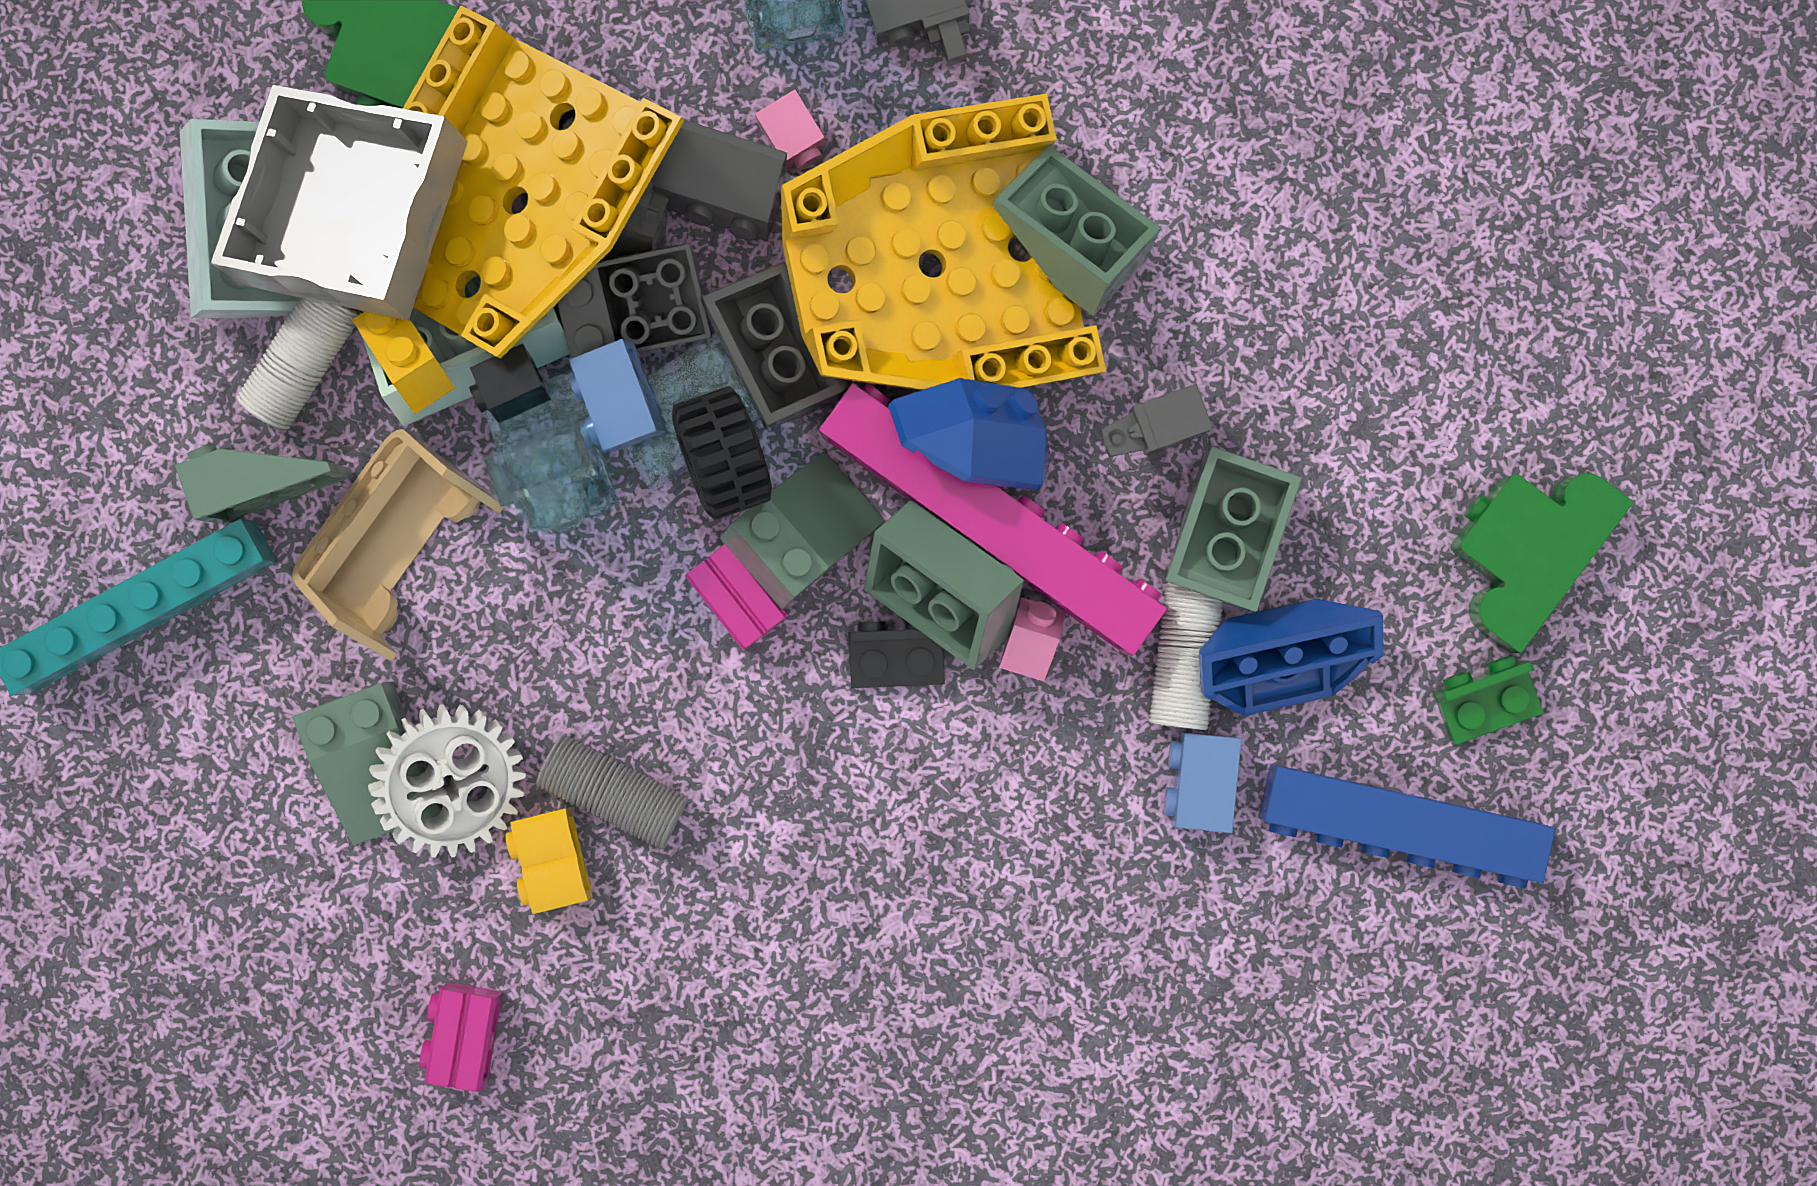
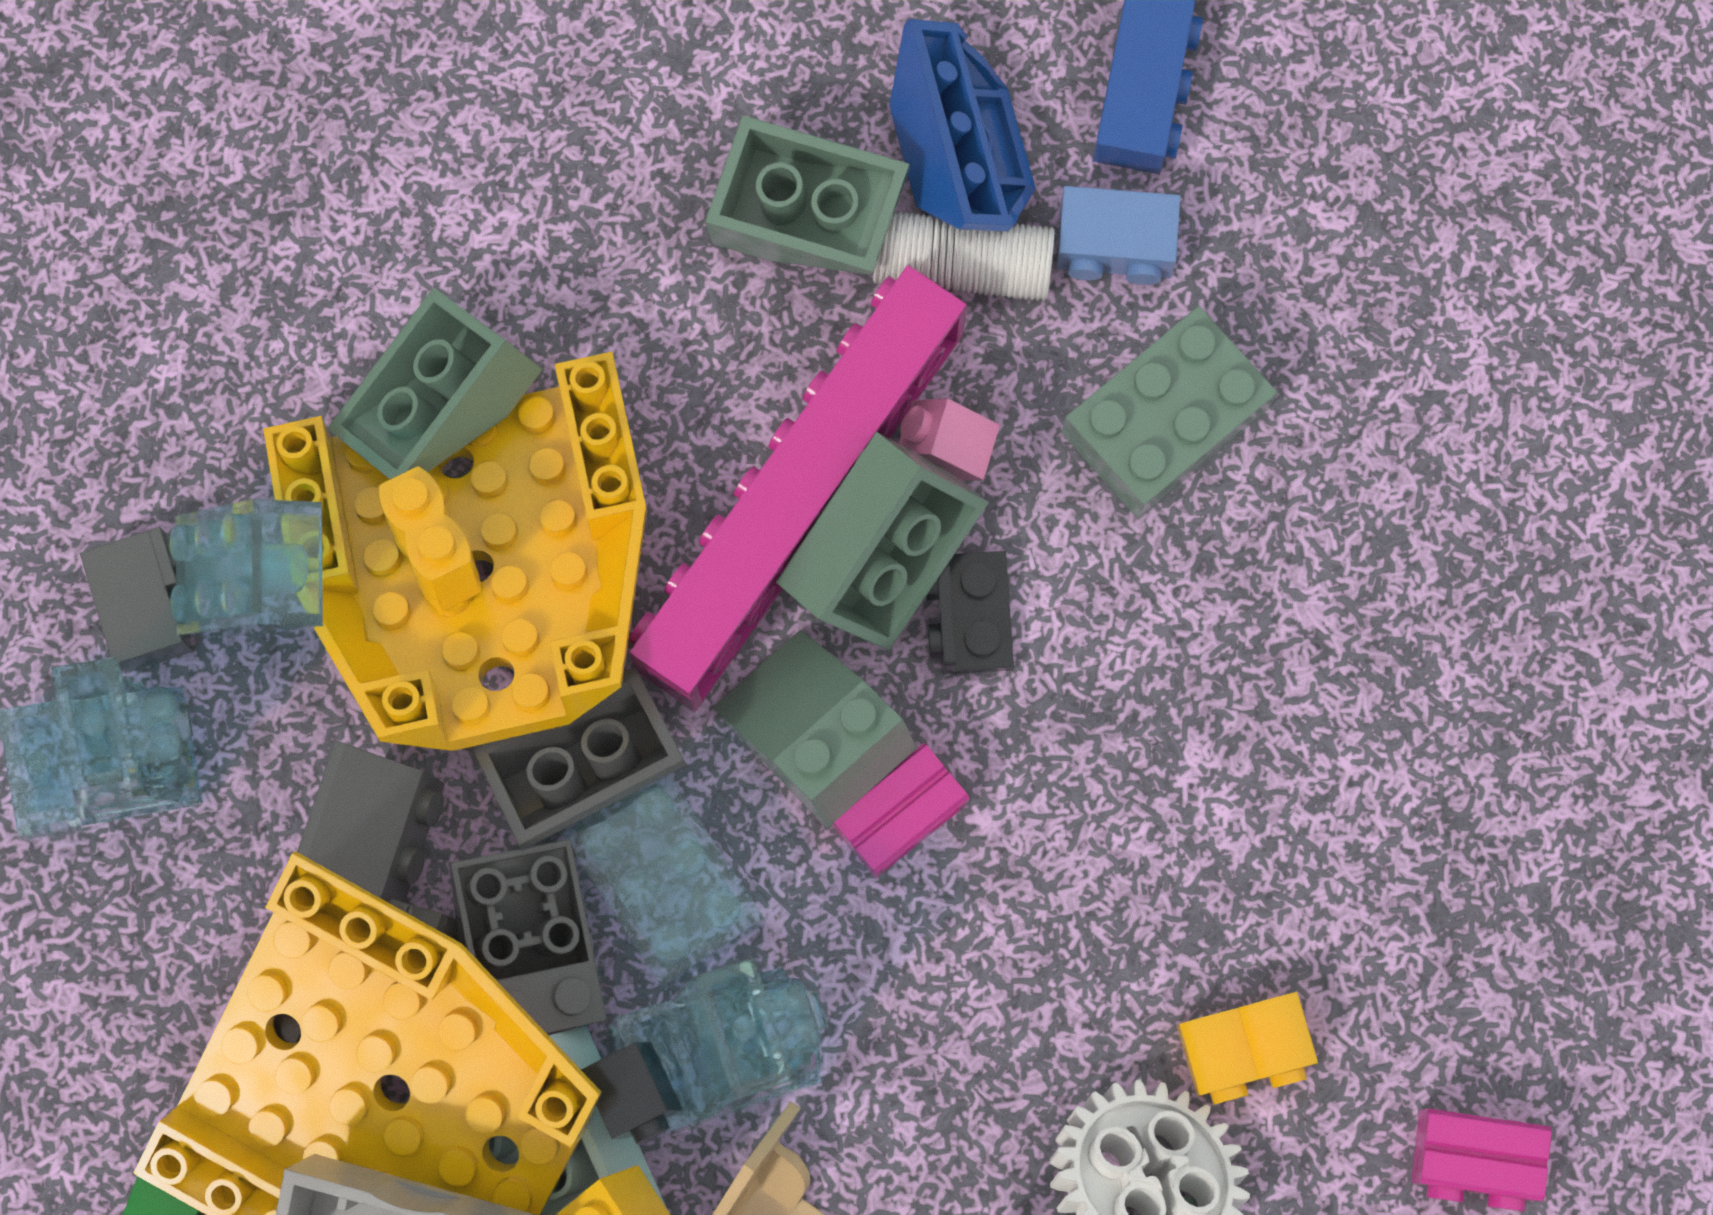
camera: 90 degrees left, 10 degrees down
(616, 396) = (646, 953): medium blue brick -> none
(626, 796) = (1168, 937): light grey piece -> none
(722, 452) = (720, 808): black tyre -> none
(792, 130) = (300, 750): bright pink brick -> none
(922, 81) = (248, 568): none -> clear light blue brick
(948, 225) = (429, 538): none -> yellow brick
(976, 432) = (690, 496): blue wedge -> none
(1053, 818) = (1168, 412): none -> sand green brick
(1158, 424) = (677, 283): dark grey hinge -> none

